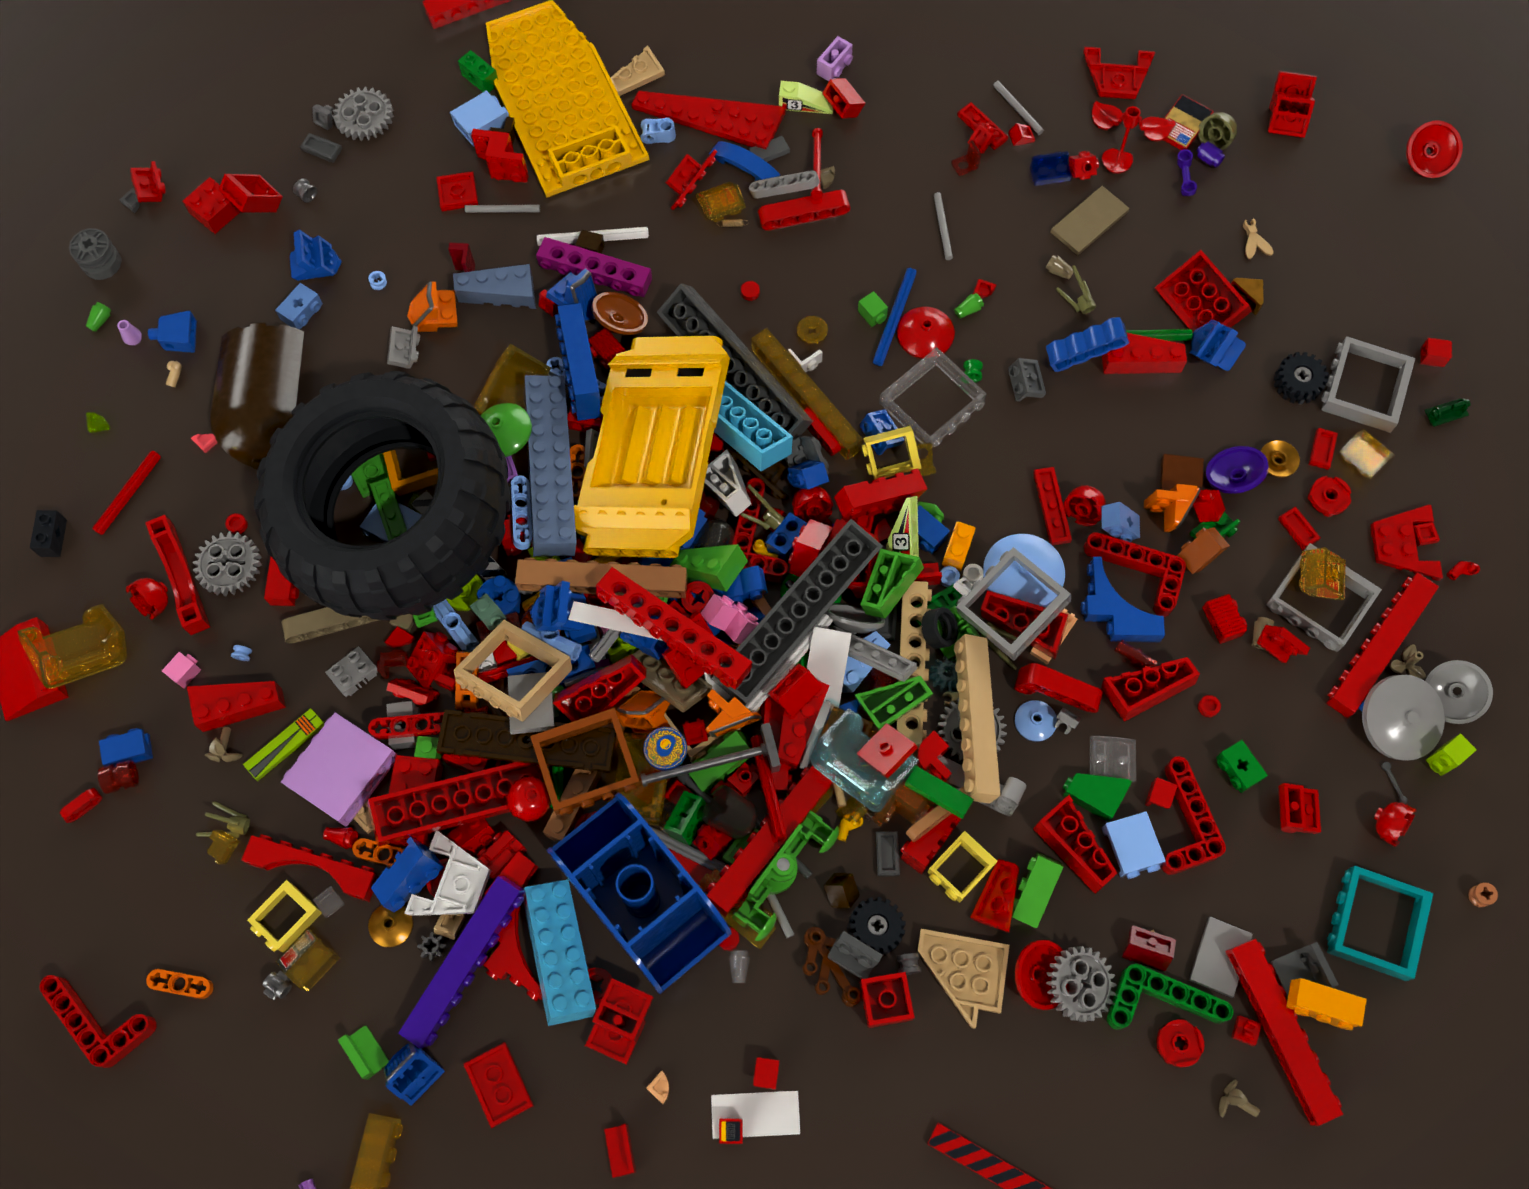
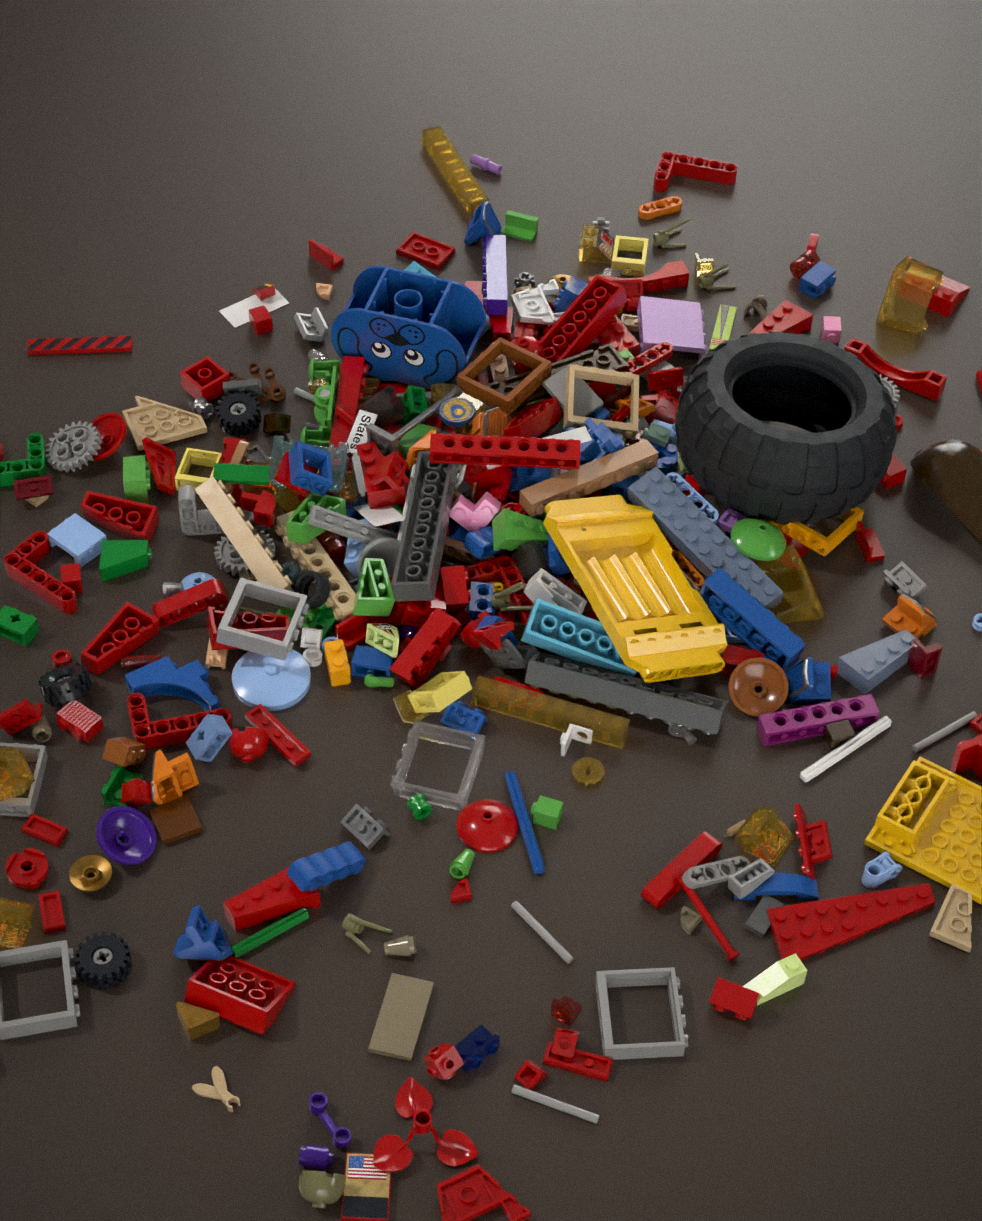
camera: 145 degrees right, 20 degrees down
(148, 596) = (898, 349): red cylinder -> none
(225, 925) = (662, 237): none -> olive plant
(337, 854) = (632, 287): none -> red tile
(714, 1026) = (312, 325): none -> light grey bracket
(750, 290) = (670, 776): red tile -> none
(772, 162) = (737, 881): none -> light grey slope
(778, 787) = (358, 433): none -> white sticker
(819, 453) = (491, 634): none -> red slope
(834, 59) = (778, 1034): lavender brick -> none
(887, 744) = (313, 457): none -> blue window
(926, 101) = (641, 977): none -> light grey window
(1113, 757) = (122, 586): clear slope -> none
(1231, 668) = (65, 683): none -> black bush

